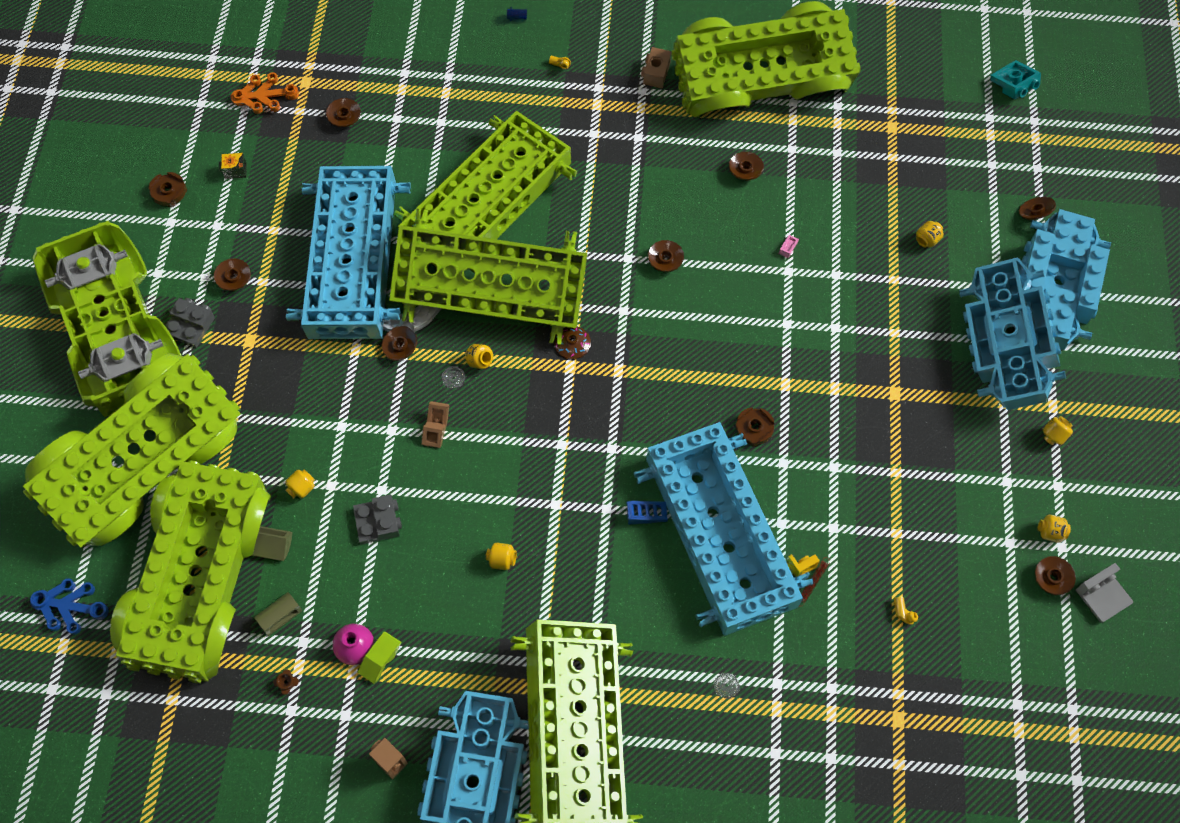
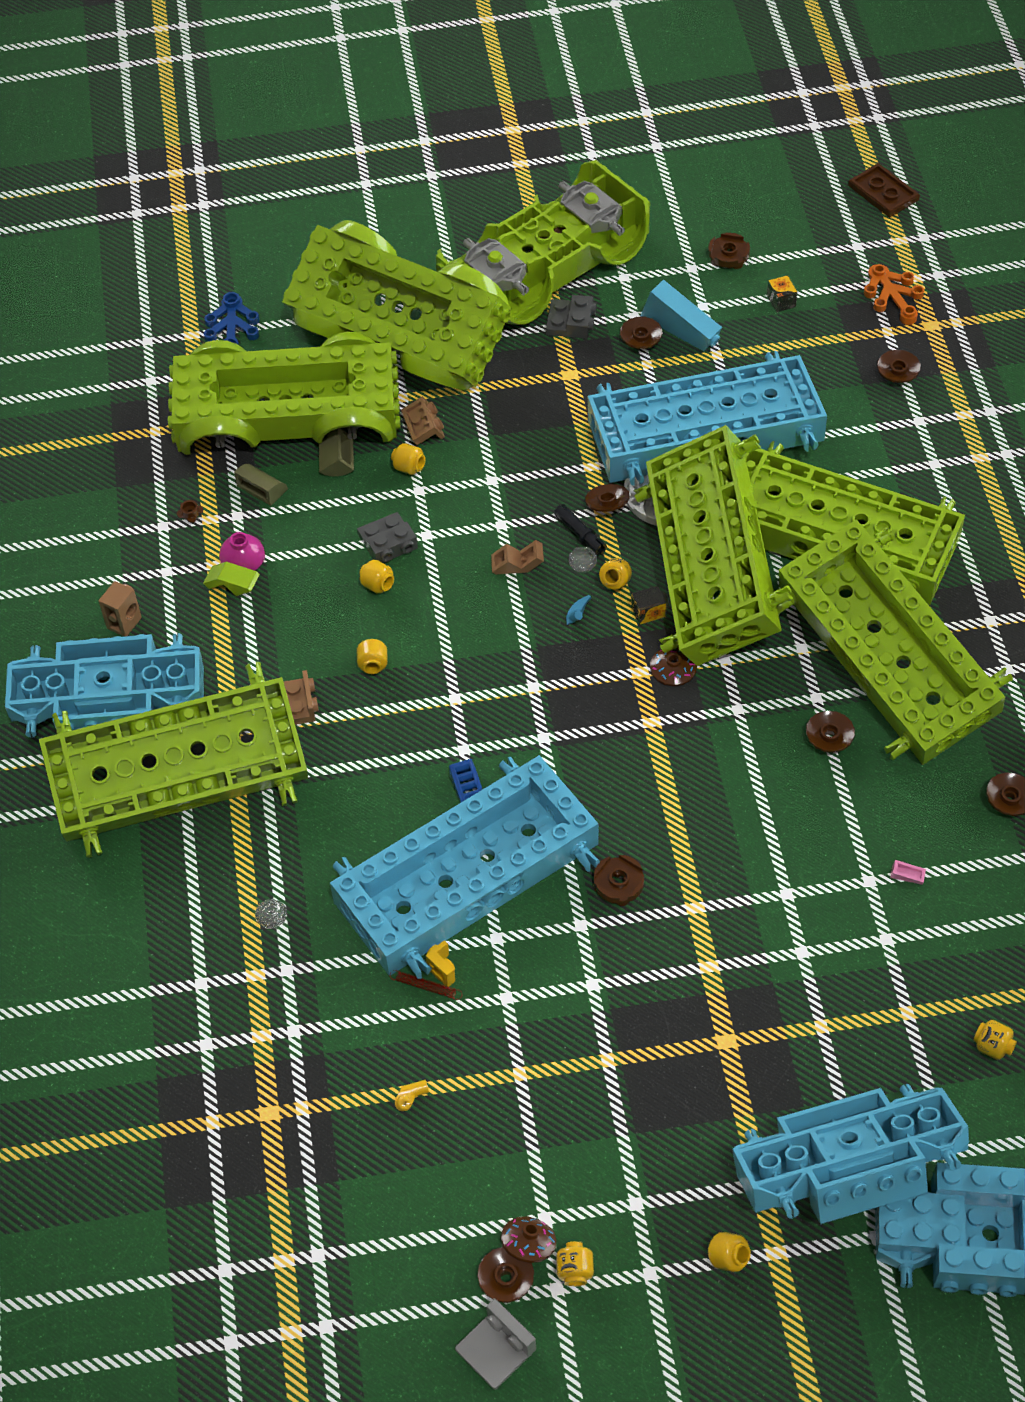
camera: 80 degrees right, 10 degrees down
(150, 67) = (884, 190): none -> reddish brown tile
(230, 241) = (681, 317): none -> medium azure slope
(263, 464) = (422, 420): none -> medium nougat bracket
(419, 536) = (376, 576): none -> yellow head
(422, 371) = (586, 535): none -> black pin
(500, 395) = (576, 611): none -> dark azure bar
(515, 341) = (649, 604): none -> clear smoke brick
(518, 620) = (300, 699): none -> medium nougat bracket
(605, 177) = (907, 632): none -> lime piece
(1028, 561) = (528, 1239): none -> reddish brown dish

